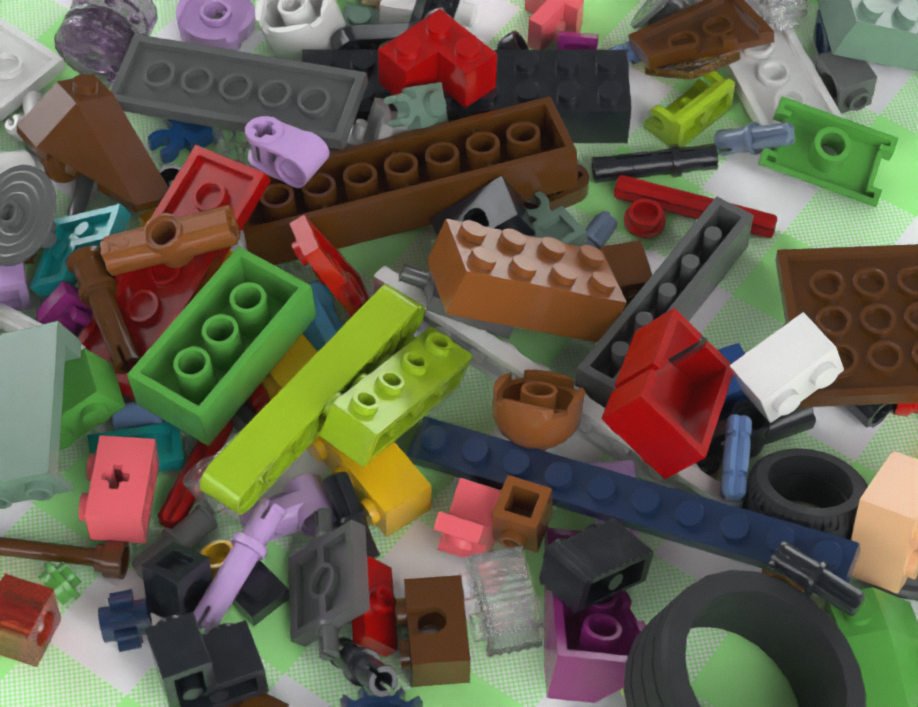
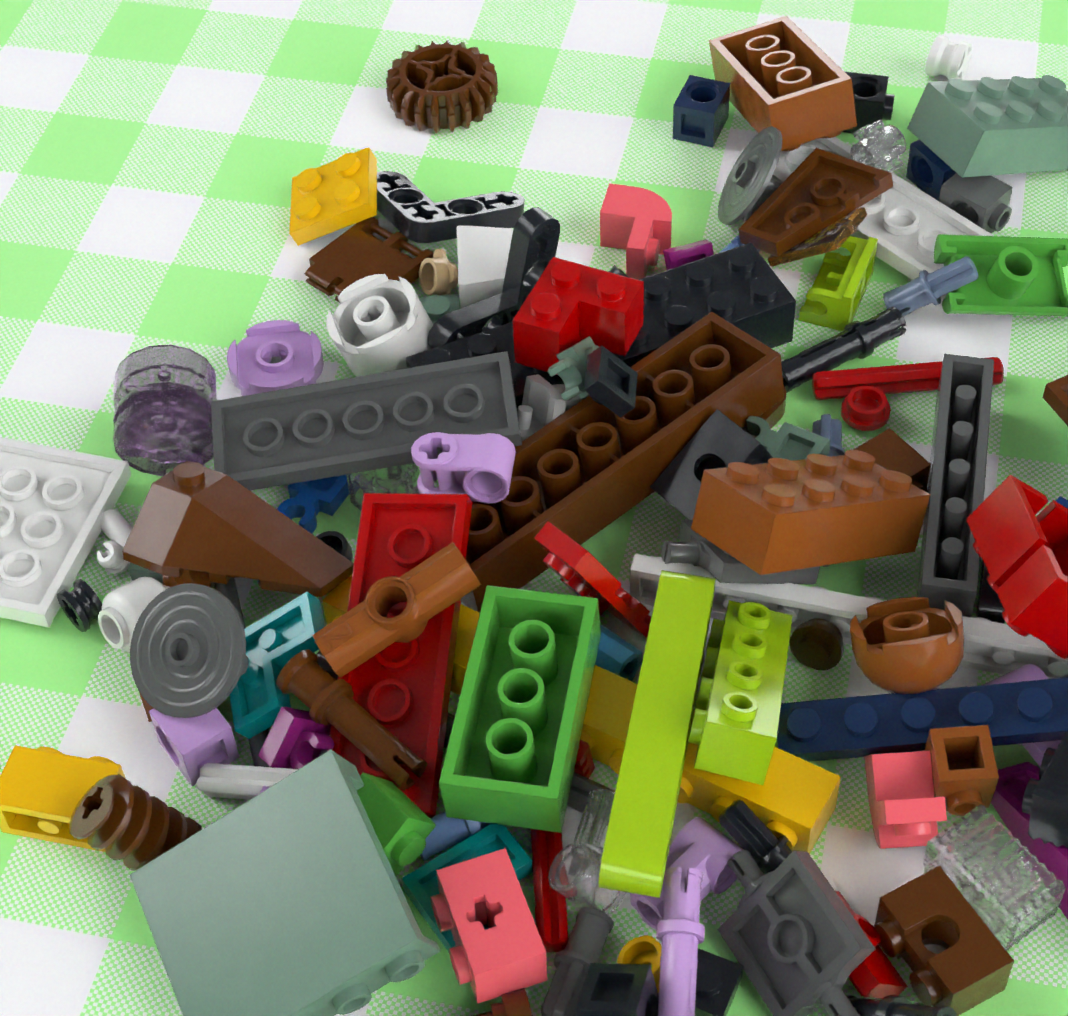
camera: 20 degrees left, 5 degrees down
(429, 124) = (610, 381): none -> black plate
(481, 383) = (817, 644): none -> dark brown plate

